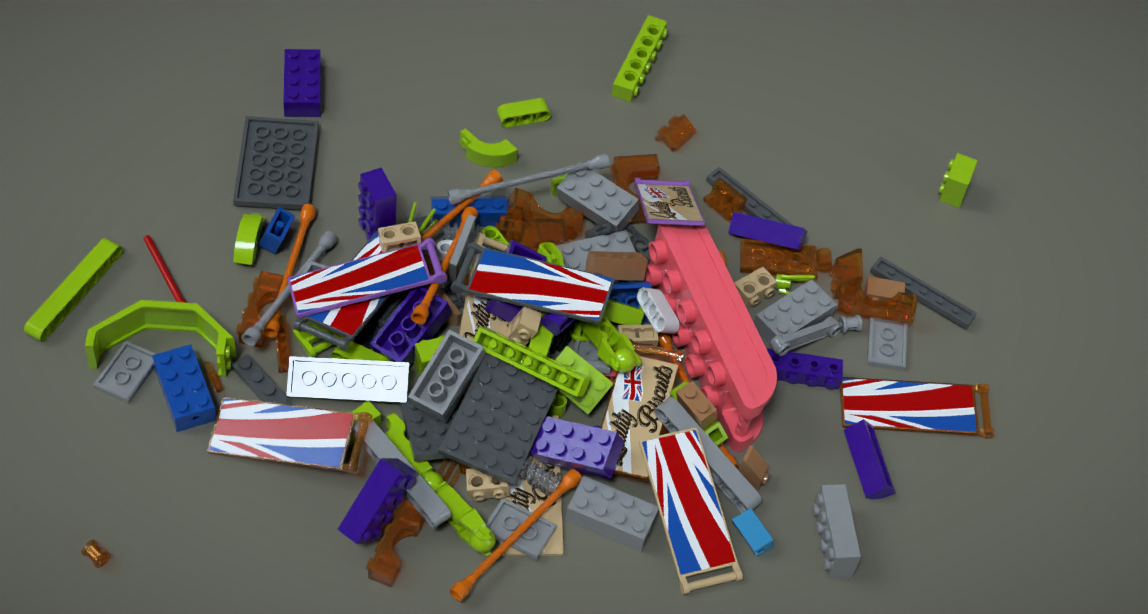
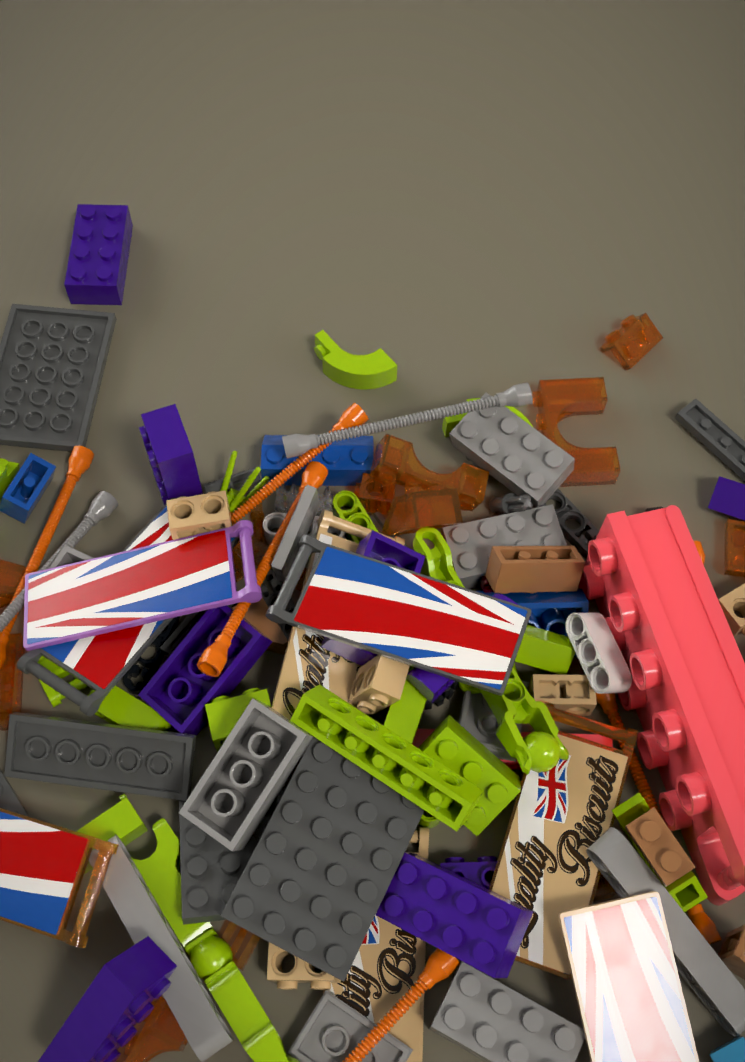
camera: 10 degrees right, 10 degrees up
(523, 112) = (411, 305): lime beam -> none
(539, 476) = (391, 955): clear piece -> none
(639, 58) = (582, 226): lime brick -> none
(668, 202) = (623, 470): flag -> none
(725, 199) = (705, 453): clear orange bracket -> none

